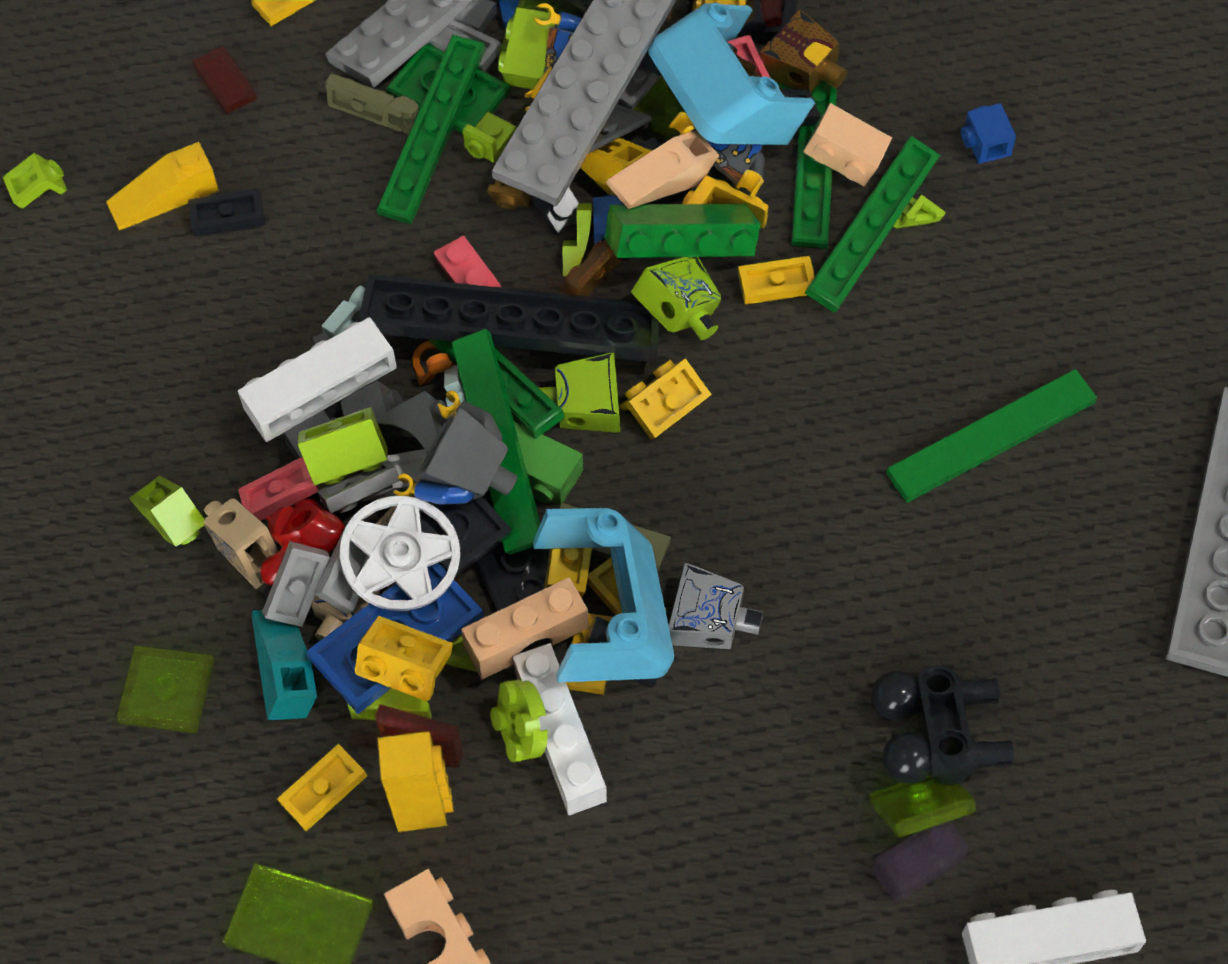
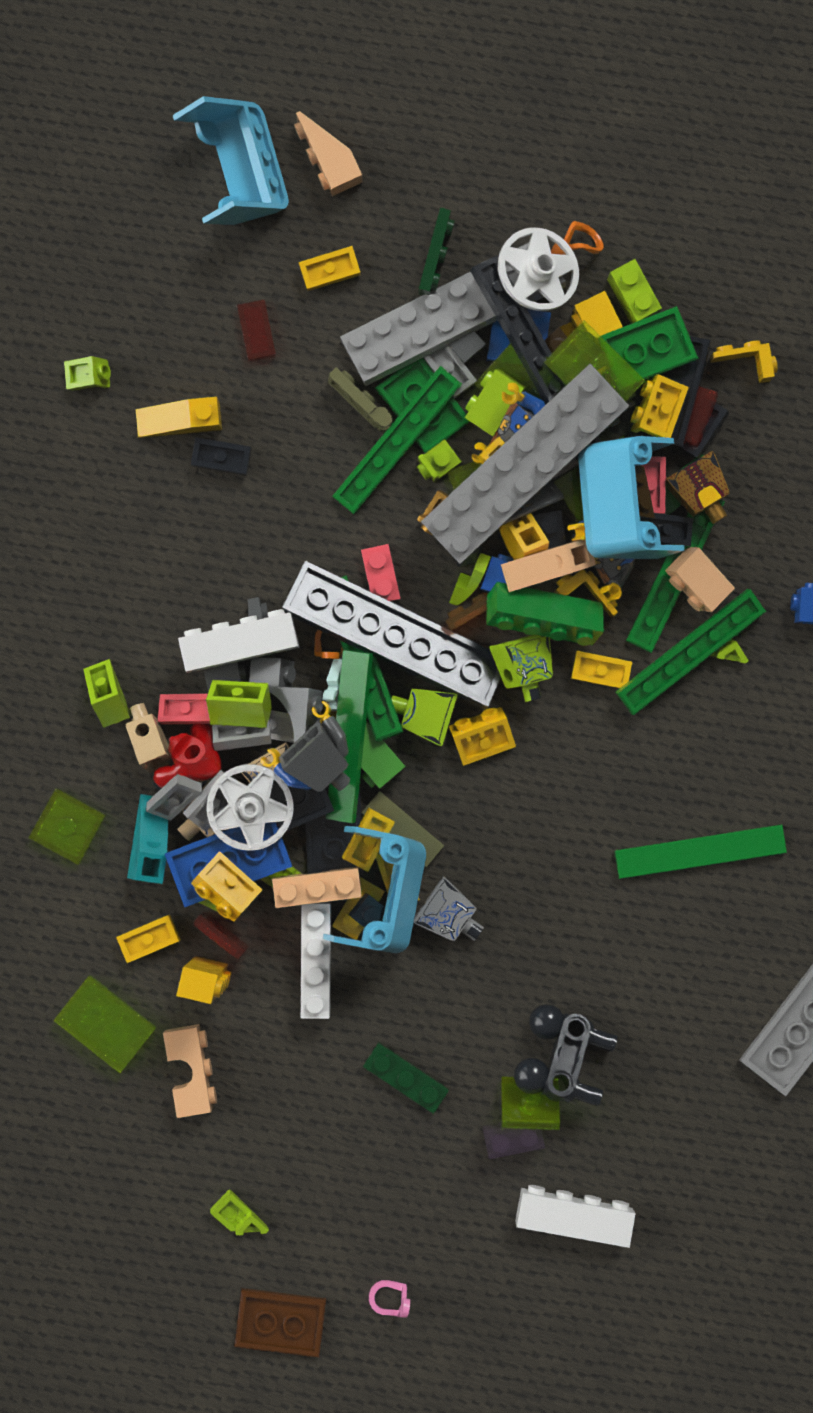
camera: 20 degrees right, 25 degrees up
(344, 314) = (275, 590): light aqua plate -> none
(519, 720) = (292, 948): lime plate -> none
(741, 843) = (405, 1077): none -> dark green plate

